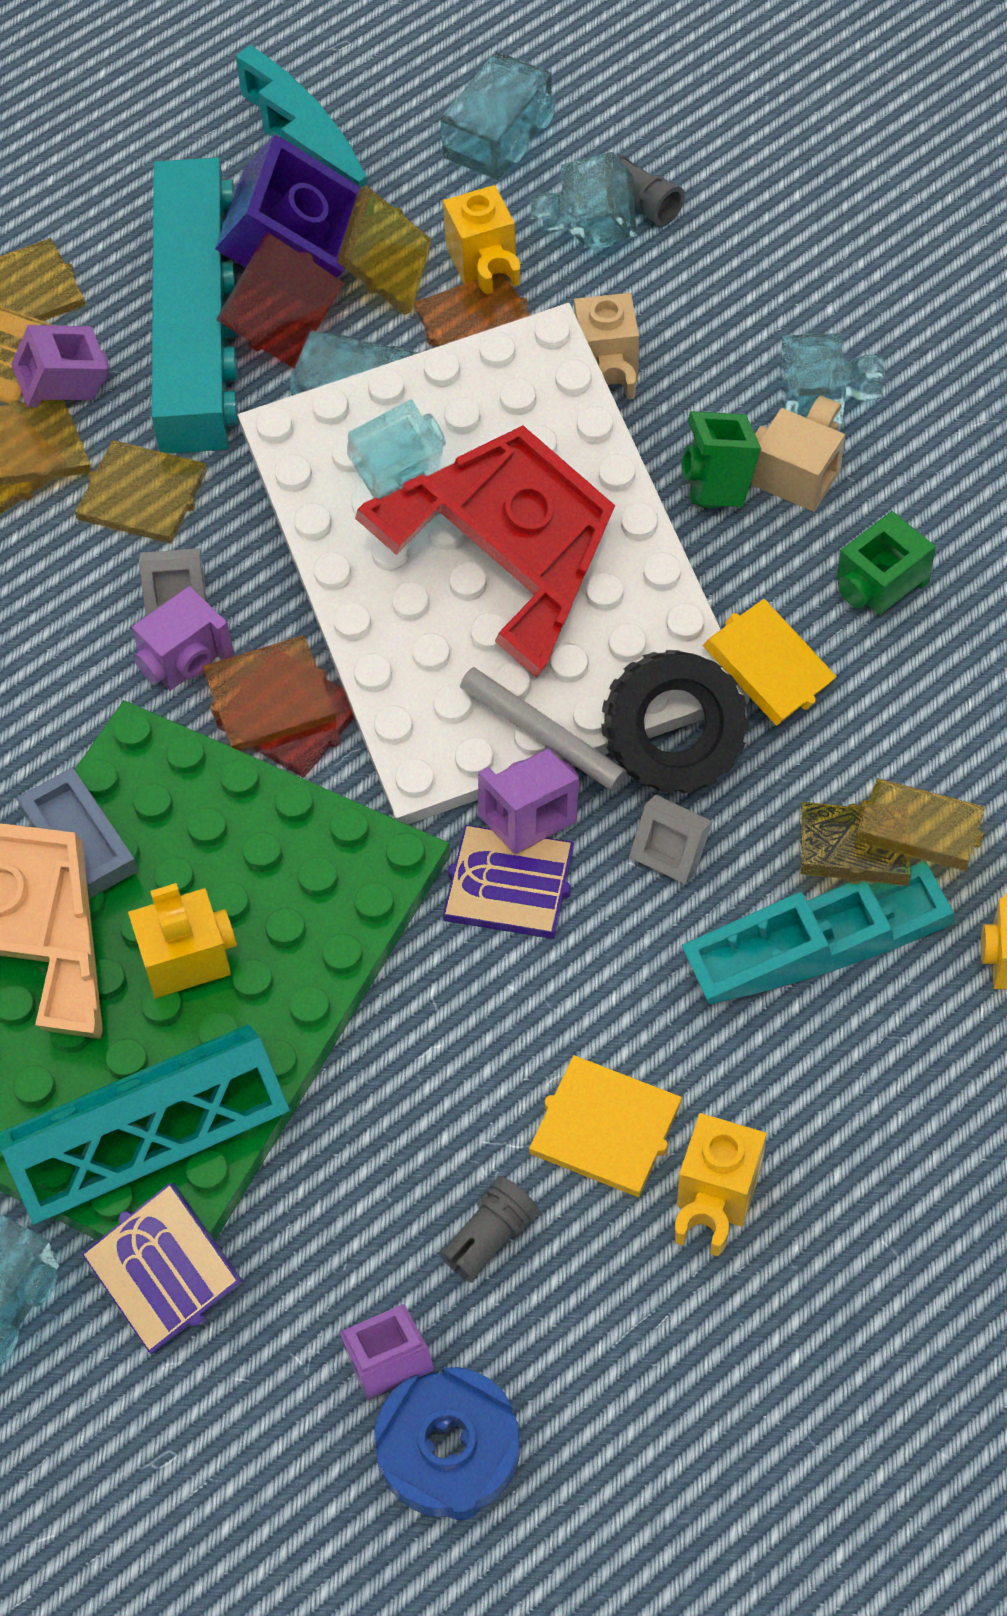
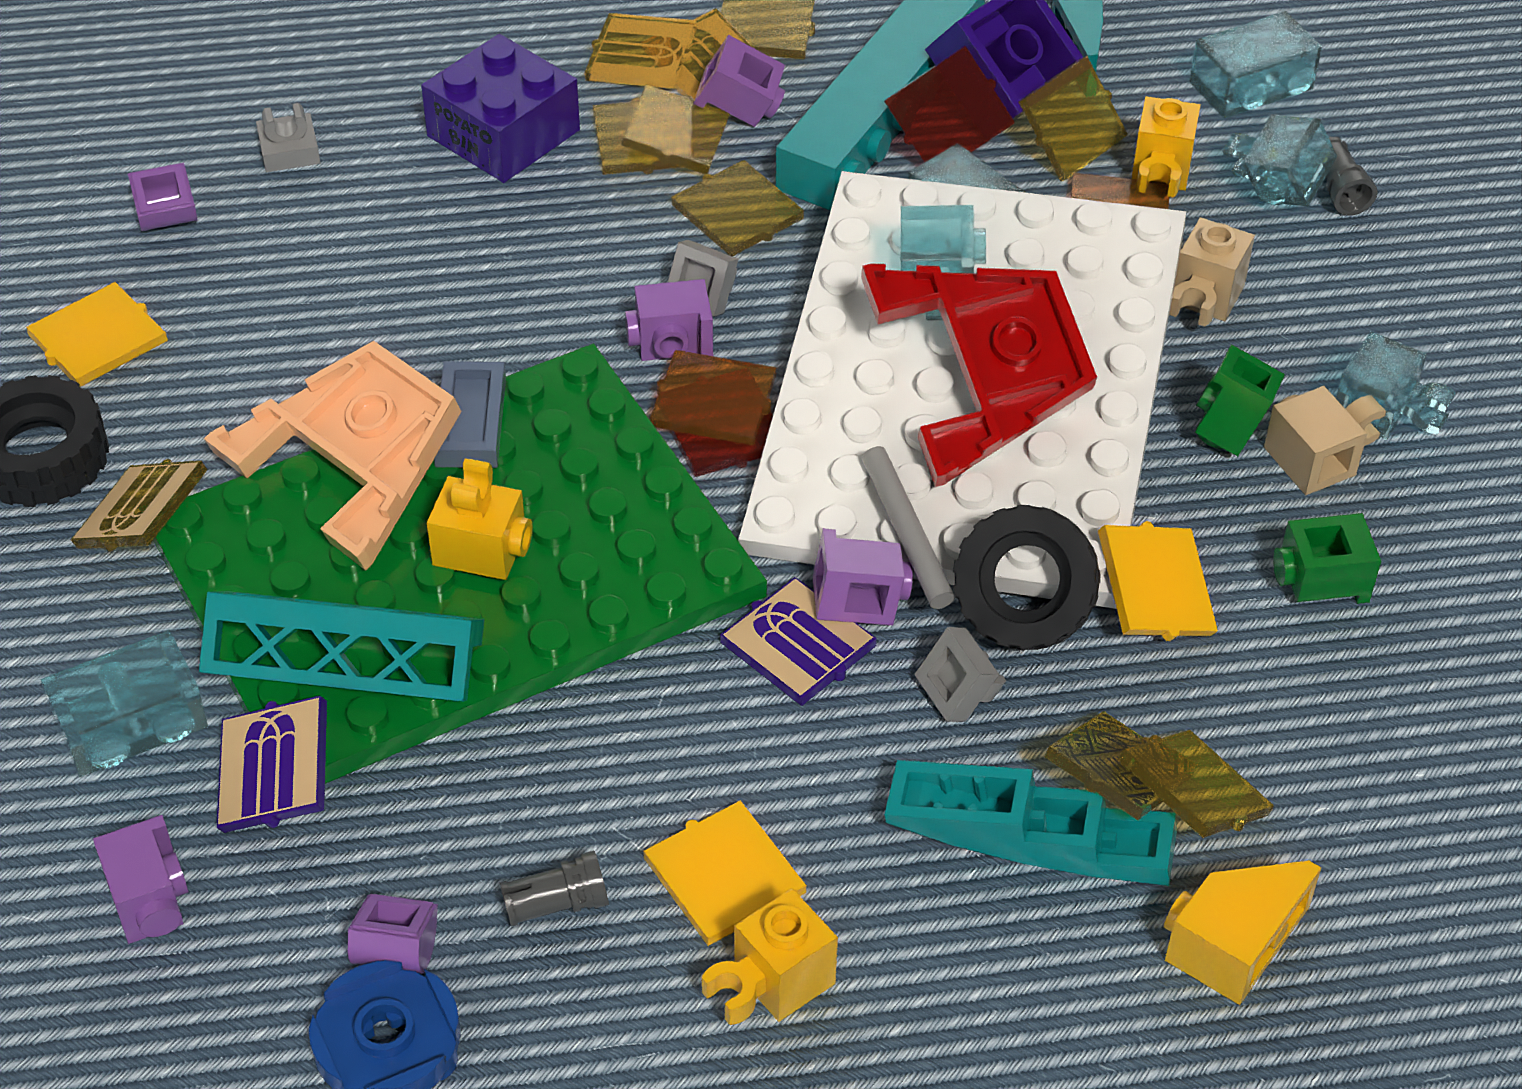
camera: 30 degrees right, 10 degrees down
(134, 1443) = (143, 878): none -> medium lavender brick

